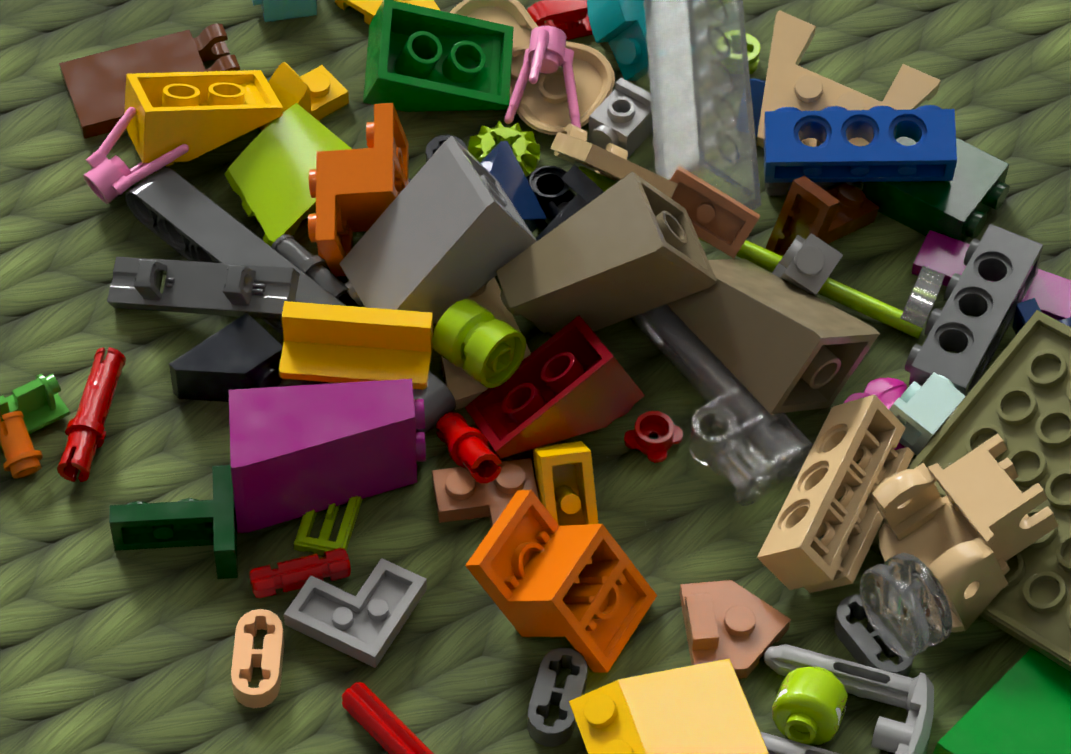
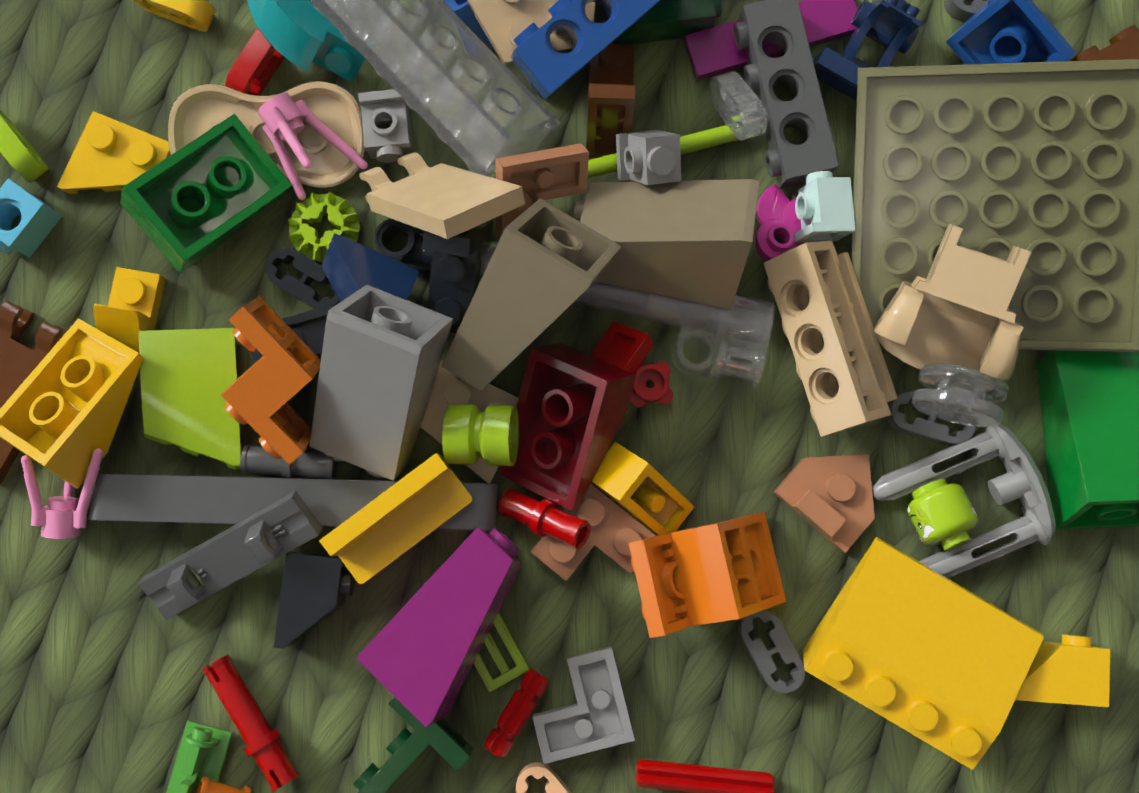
camera: 40 degrees left, 30 degrees up
(660, 391) = (623, 347): none -> red plate

